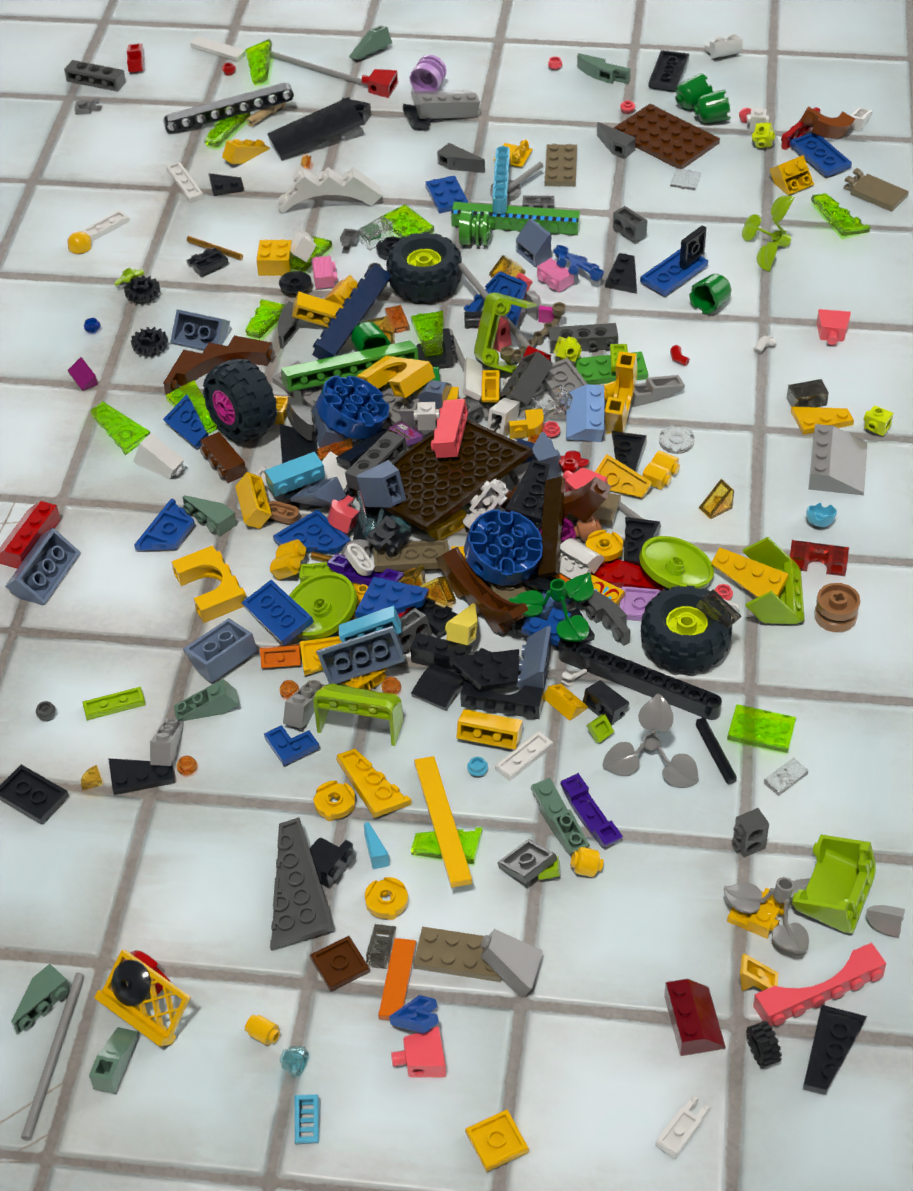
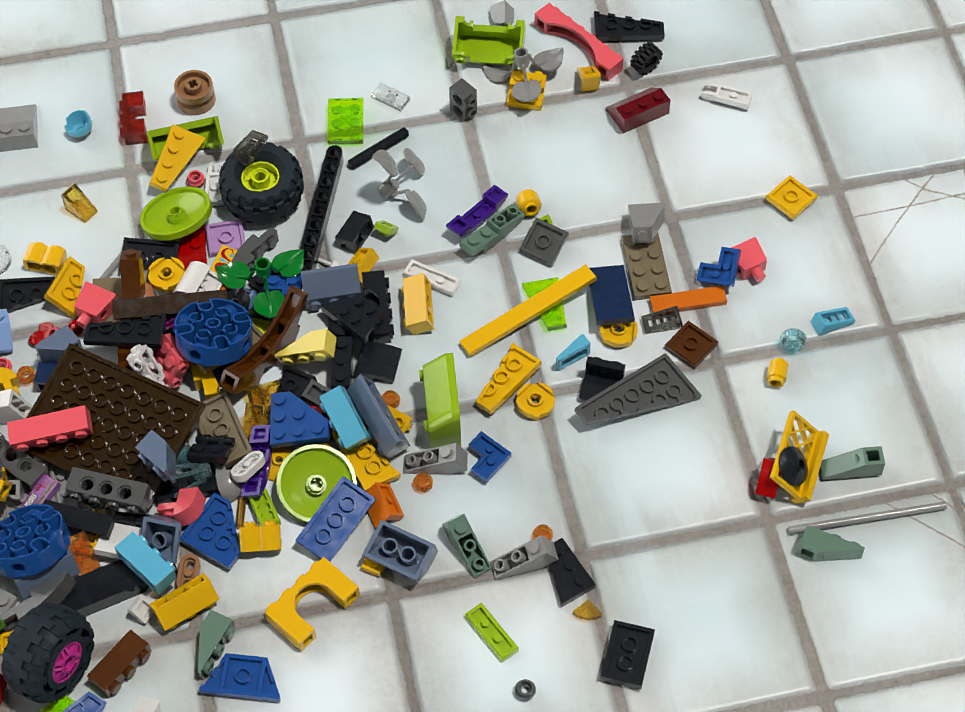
camera: 110 degrees left, 10 degrees up
(426, 415) = (26, 465): white brick -> none
(431, 900) = (611, 296): none -> dark blue tile
(477, 766) = (457, 306): medium azure plate -> none

